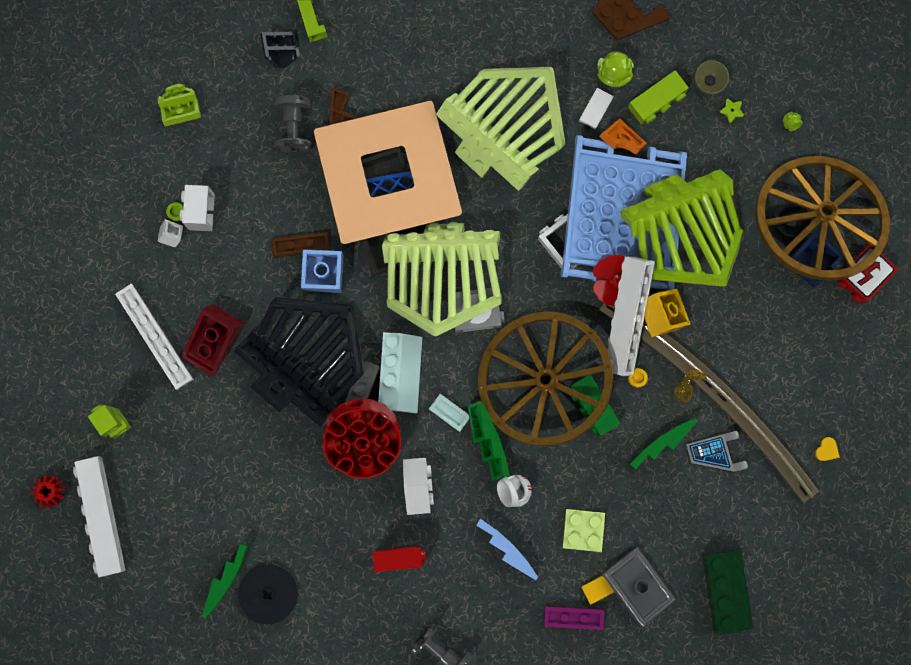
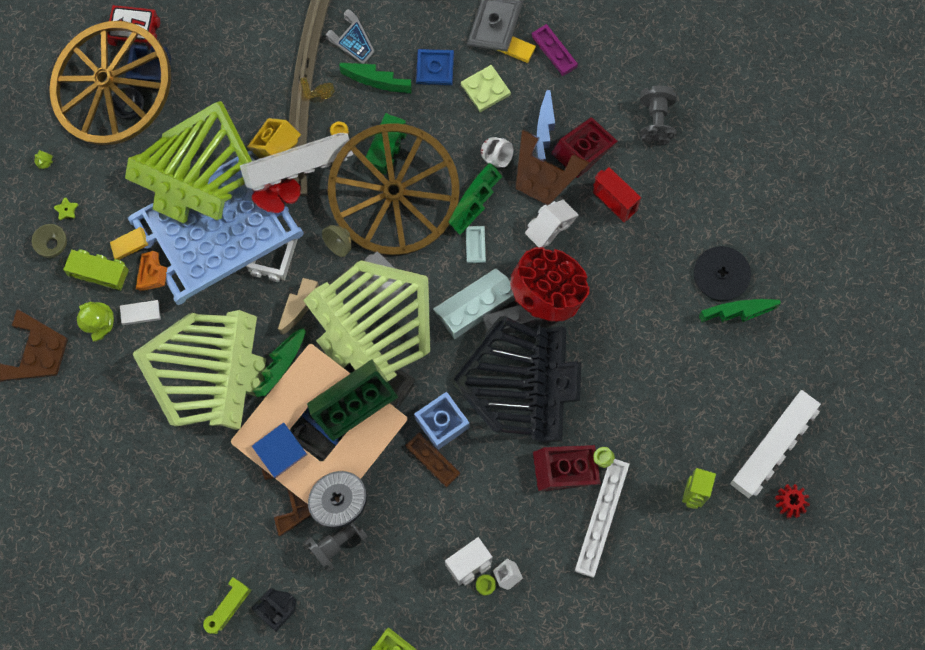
camera: 125 degrees left, 10 degrees down
(196, 373) = (604, 457): none -> lime tile
(307, 151) = (351, 495): none -> piece
(386, 208) = (352, 400): none -> dark green slope
(394, 130) = (279, 450): none -> blue tile
(463, 509) = (541, 178): none -> reddish brown wing
(464, 570) = (586, 141): none -> dark red slope
(470, 190) = (282, 357): none -> green slope
(507, 232) = (295, 306): none -> tan slope
(536, 303) = (337, 240): none -> olive piece
(637, 503) = (435, 67): none -> blue tile
(661, 137) = (128, 243): none -> yellow tile

